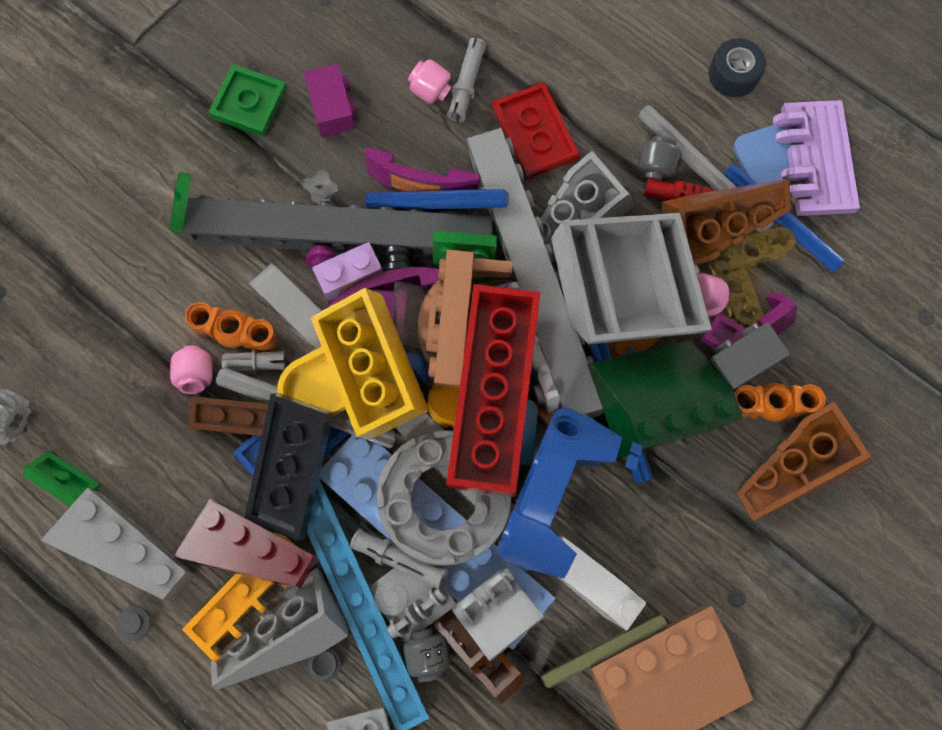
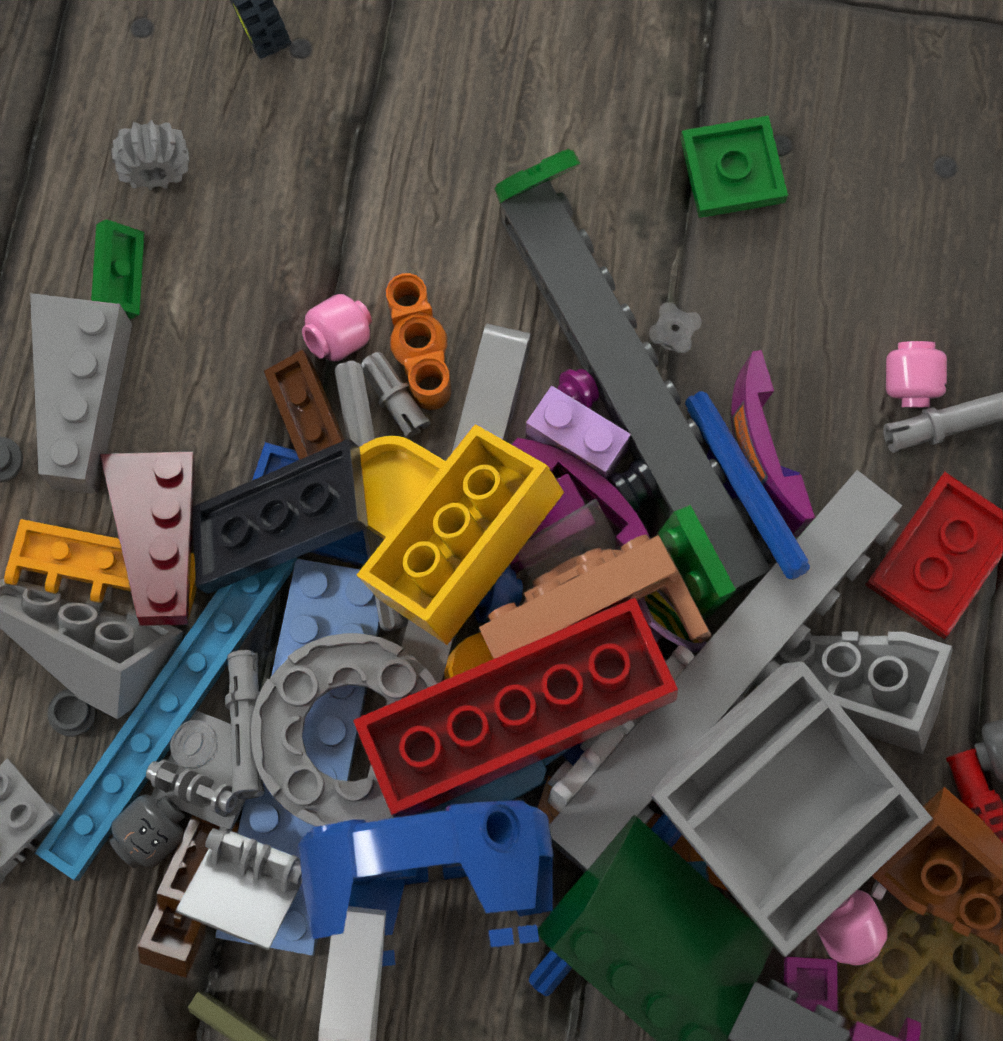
camera: 65 degrees right, 0 degrees up
(329, 100) = (801, 265): magenta brick -> none

